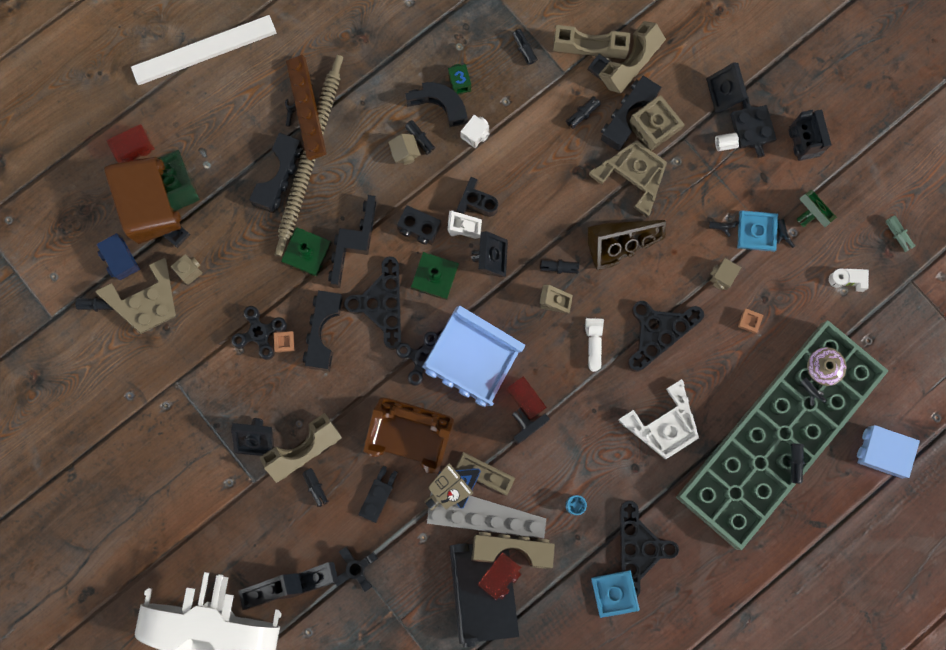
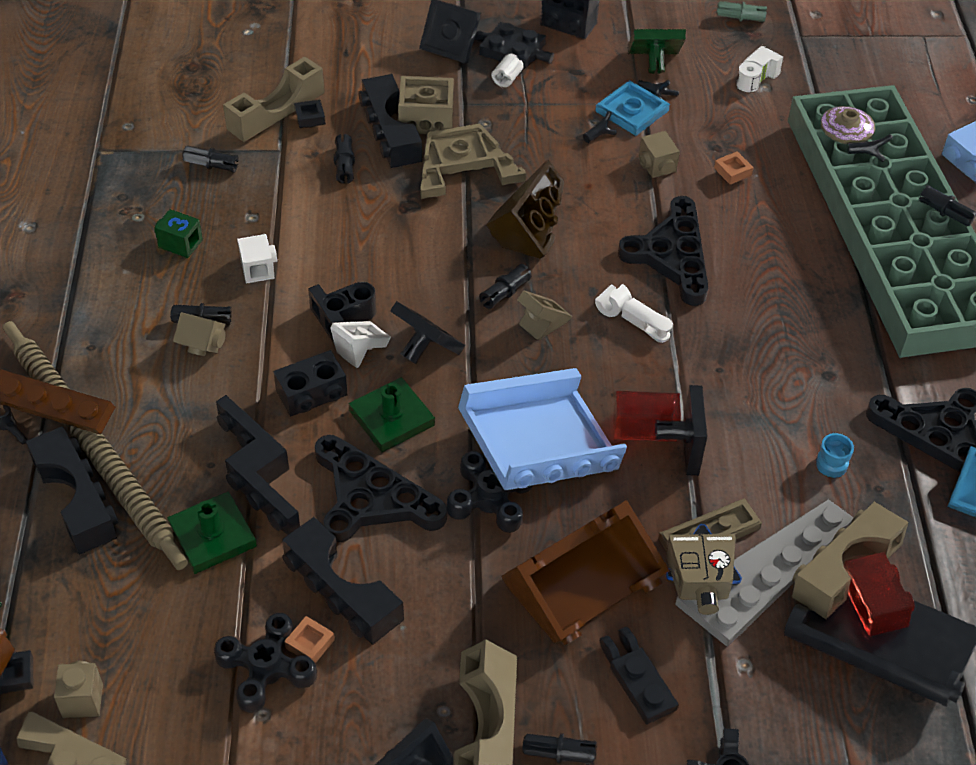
camera: 50 degrees left, 30 degrees down
(443, 97) = (183, 260): black arch -> none
(647, 41) = (337, 99): dark tan arch -> none
(670, 431) = (809, 310): white wing -> none

